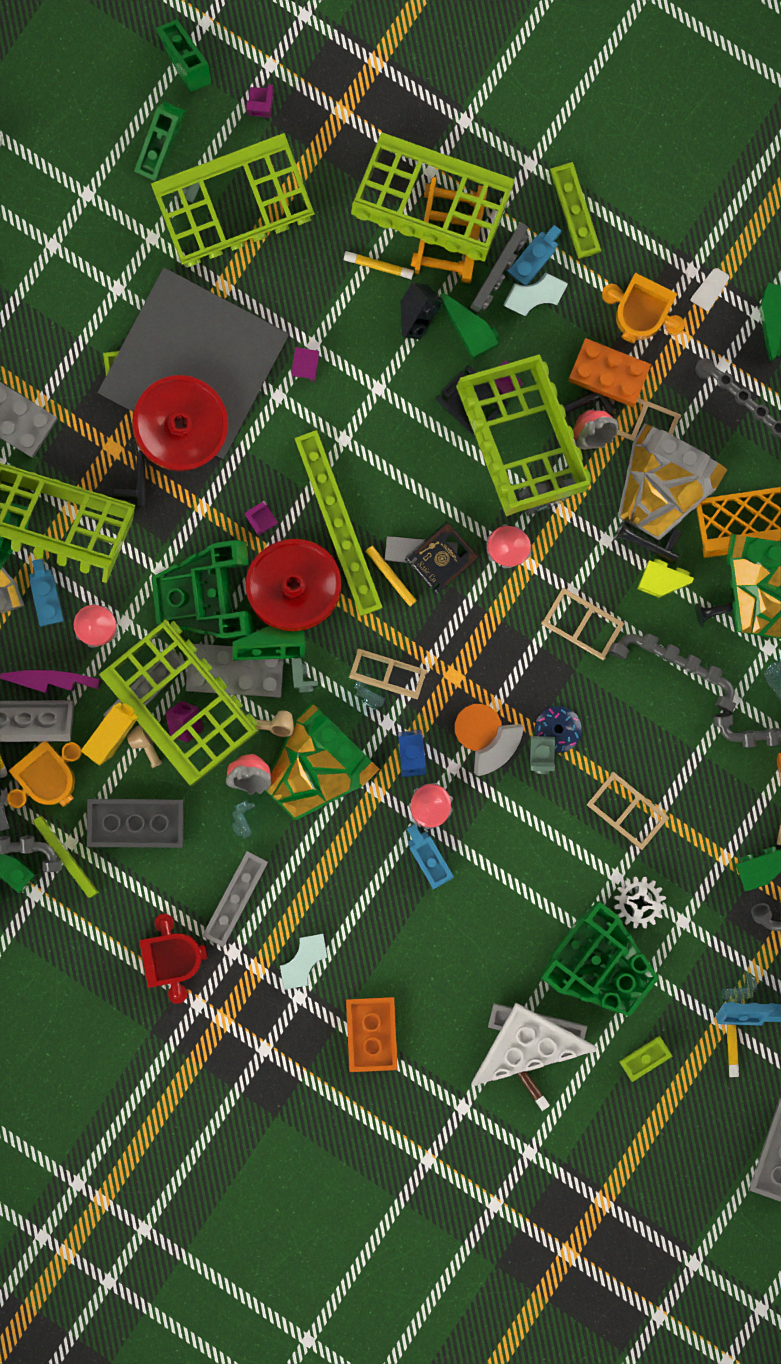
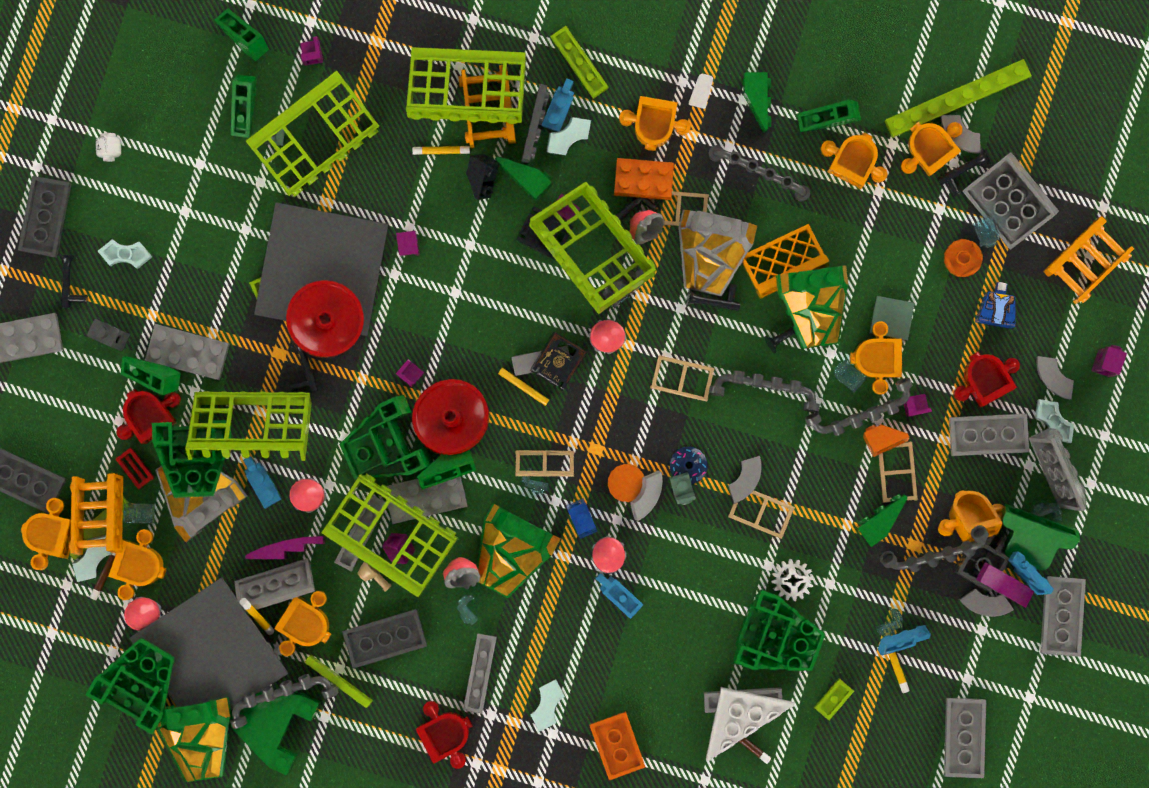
camera: 15 degrees left, 0 degrees up
(110, 733) = (343, 576): yellow slope -> none
(281, 724) = (473, 528): tan bar -> none
(299, 673) = (476, 482): sand green bracket -> none
(338, 523) = (470, 358): lime plate -> none
(623, 768) = (747, 480): none -> light grey tile
(661, 580) = (731, 326): neon yellow slope -> none

